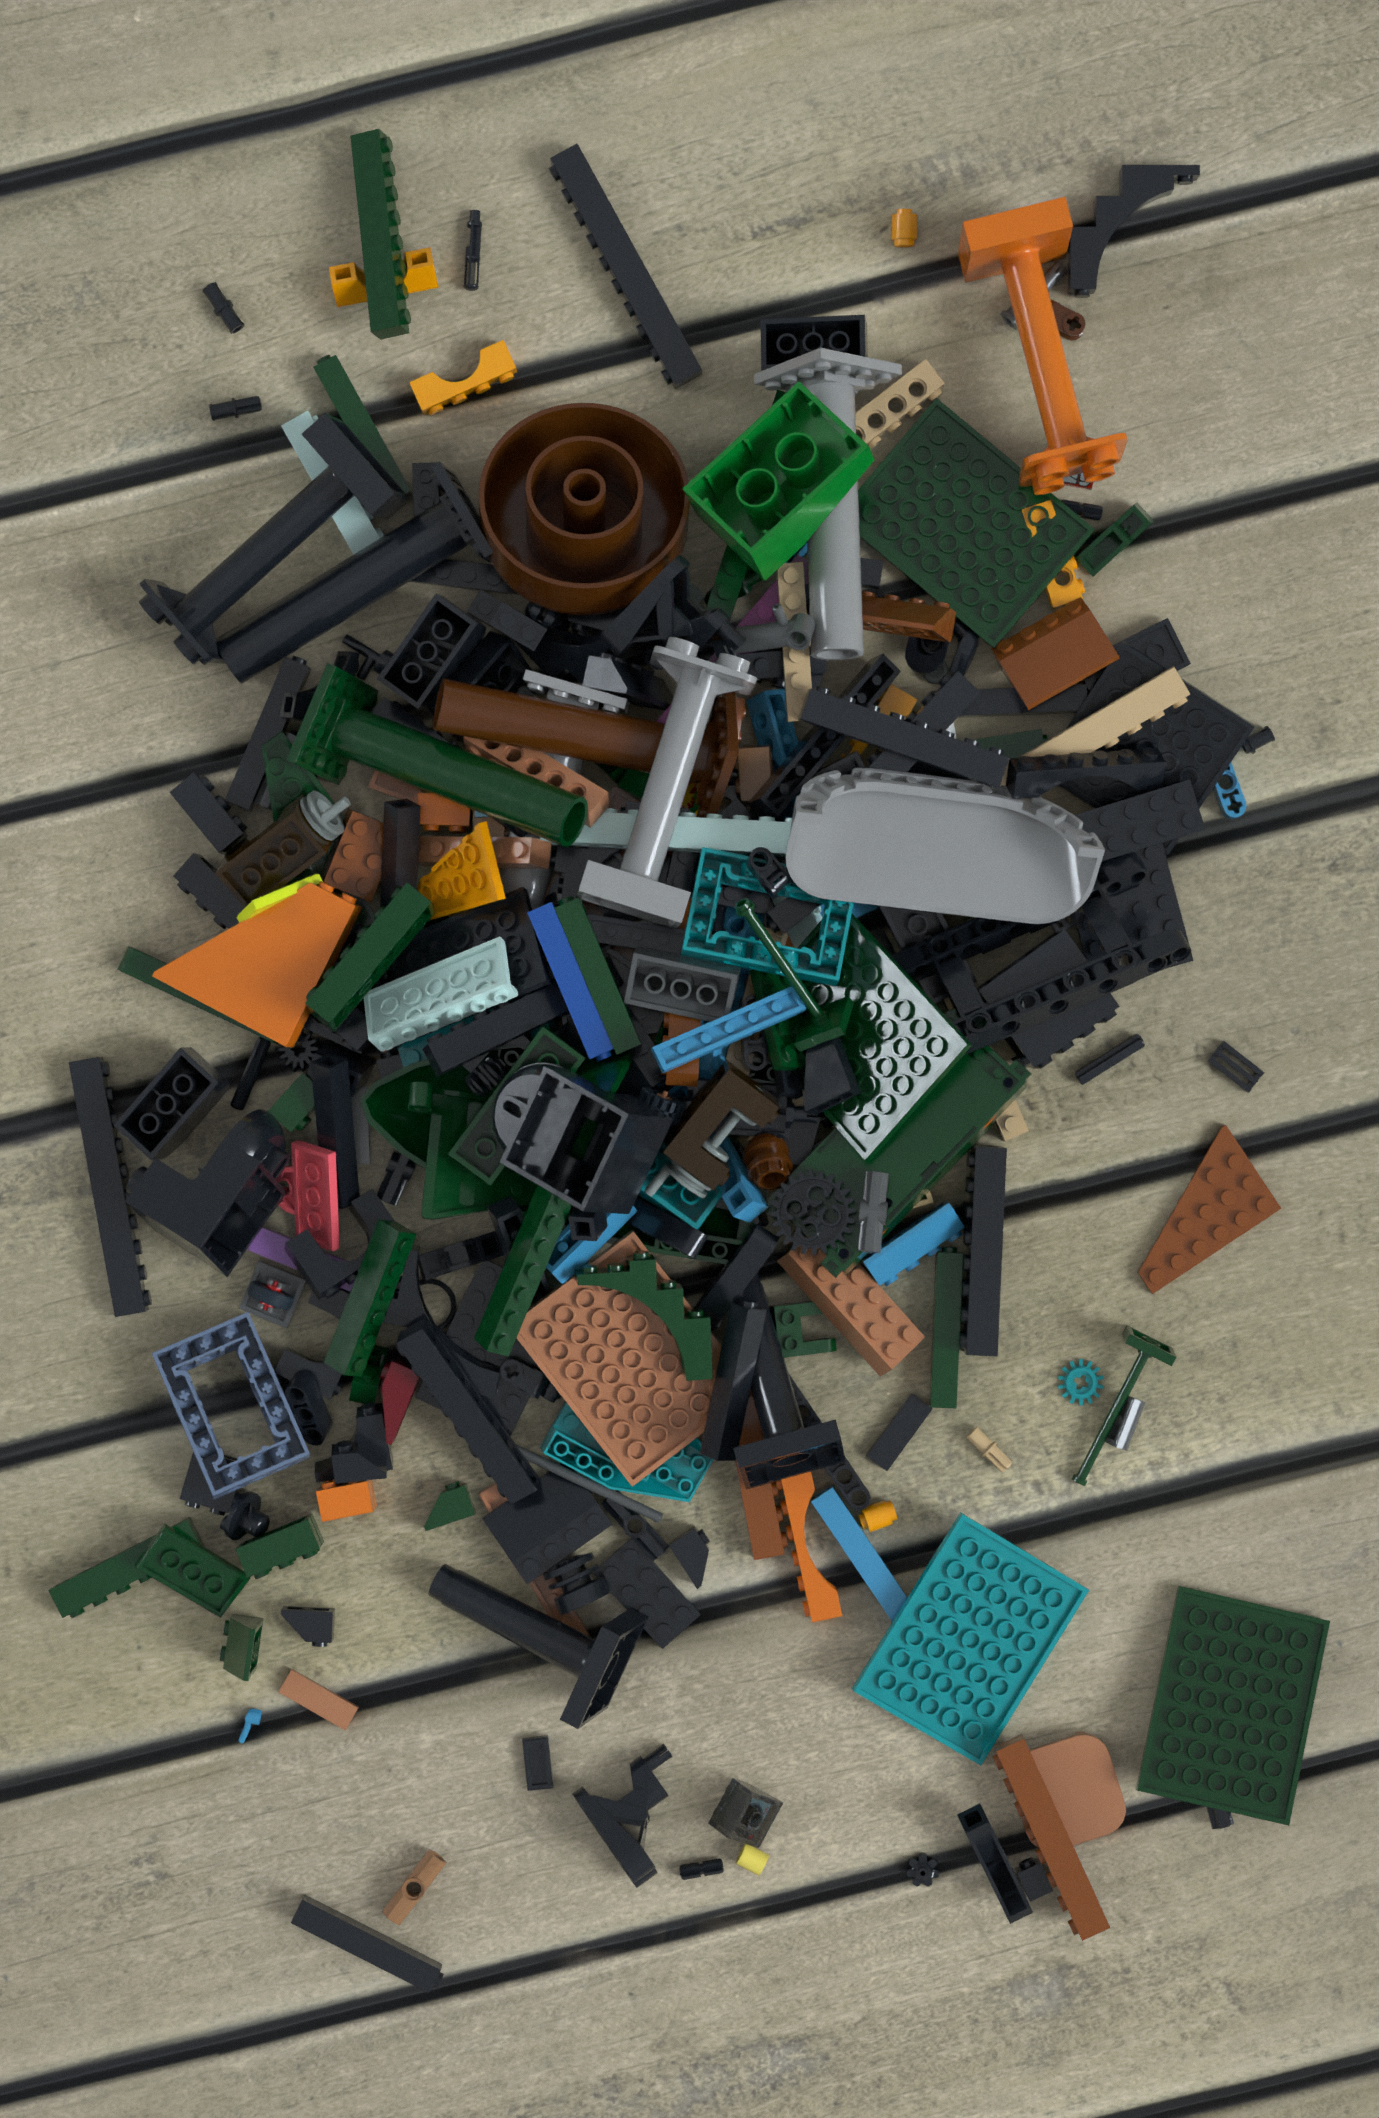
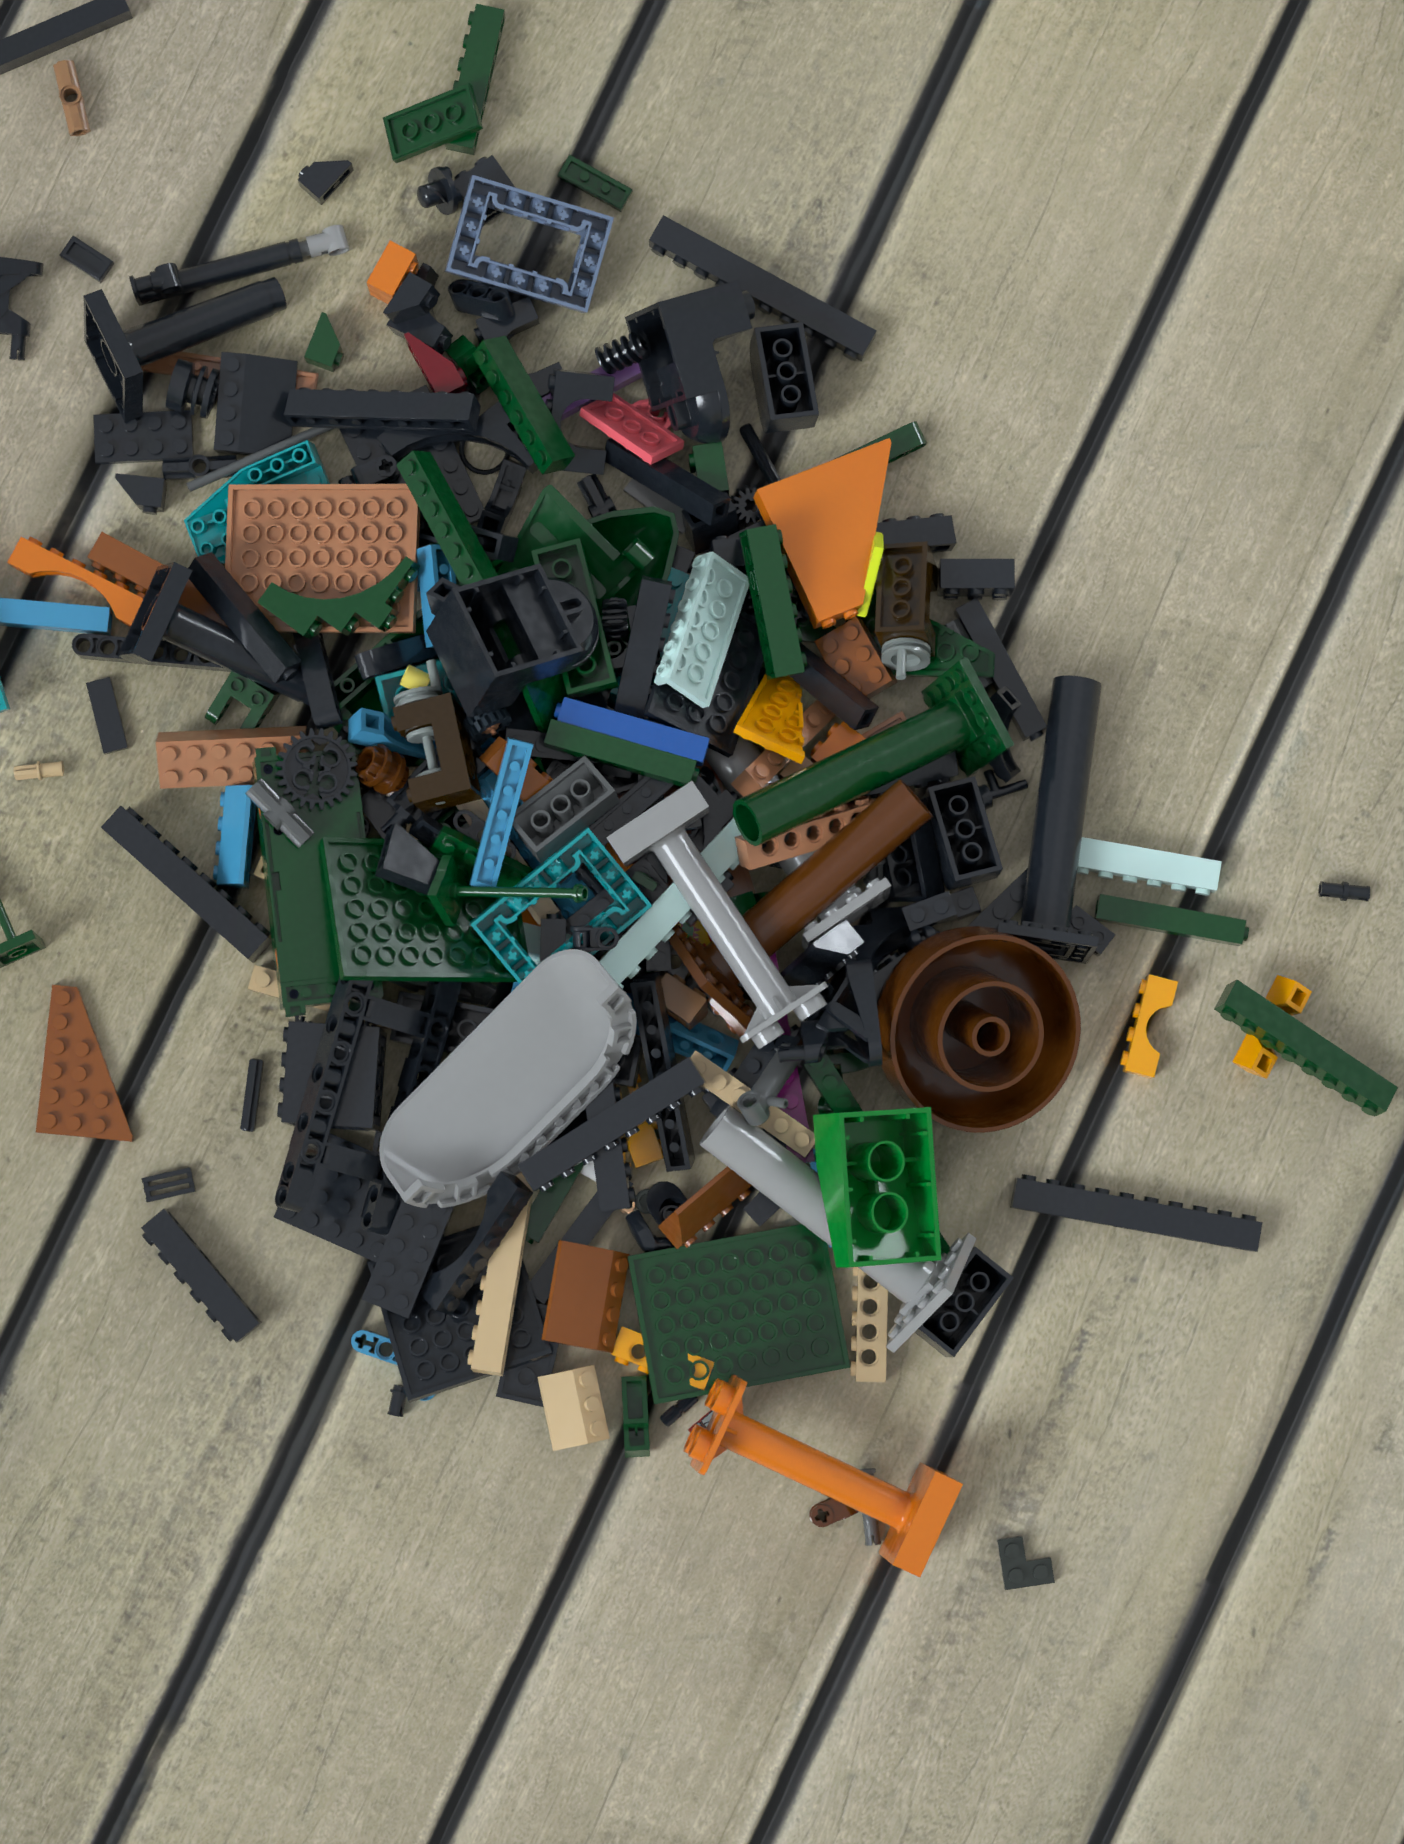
camera: 125 degrees right, 5 degrees down
(132, 1397) = (595, 183): none -> dark green tile
(235, 407) = (1262, 840): black axle -> none
(242, 1645) = (347, 114): dark green slope -> none
(252, 1717) = (291, 82): dark azure hand -> none
(258, 1251) = (623, 354): none -> black piece
(272, 1294) = (581, 338): dark grey plate -> none
(280, 1547) = (397, 199): dark green piece -> none
(318, 1699) = (265, 140): nougat tile -> none
(349, 474) = (1142, 878): black piece -> none
(473, 251) = (1238, 1110): black piece -> none
(499, 1674) = (171, 282): none -> black piece
(672, 1194) = (414, 678): none -> light yellow beam
(684, 872) = (645, 881): none -> dark green tile
(877, 1516) = (58, 649): light orange brick -> none
(904, 228) = (997, 1448): light orange brick -> none
(946, 1328) = (153, 811): dark green brick -> none
(987, 130) = (1018, 1571): none -> pearl dark grey plate
(1084, 1392) = (22, 875): teal gear -> none
(1137, 188) = (885, 1650): black arch -> none
(1149, 593) = (573, 1407): none -> tan slope
(1287, 979) = (201, 1275): none -> black brick

